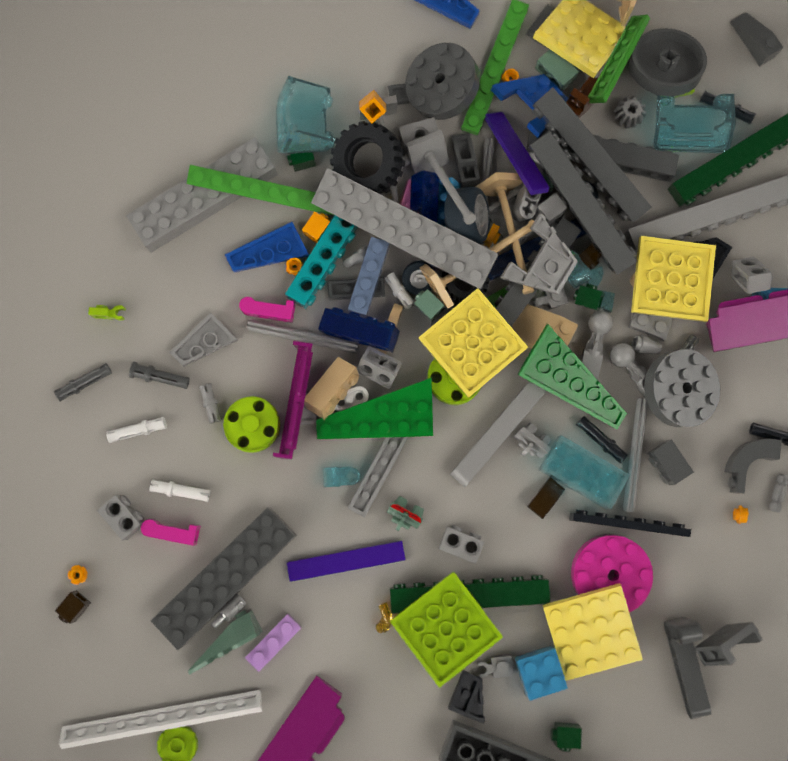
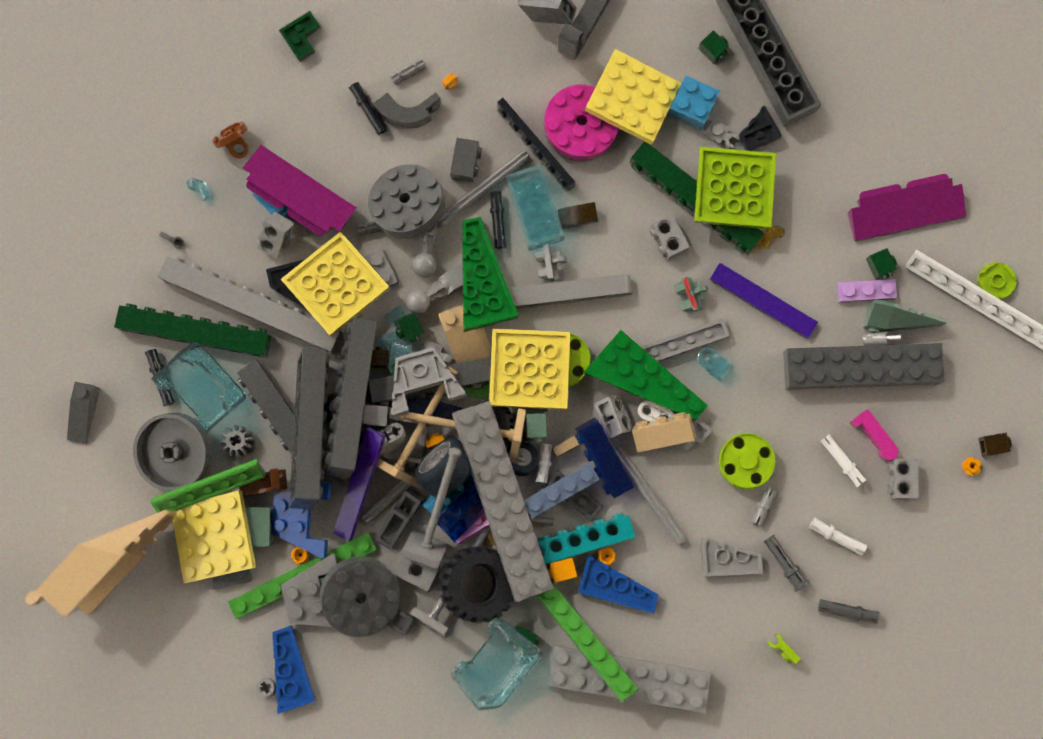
camera: 130 degrees left, 0 degrees up
(268, 310) = (669, 553): dark pink leg -> none
(278, 674) = (882, 264): none -> dark green brick
(296, 400) = (699, 446): magenta slope -> none
(355, 258) = (557, 517): light grey arm -> none
(372, 106) = (439, 616): light orange brick -> none
(485, 51) = (303, 594): none -> light grey wing
(643, 344) = (400, 257): light grey cone -> none

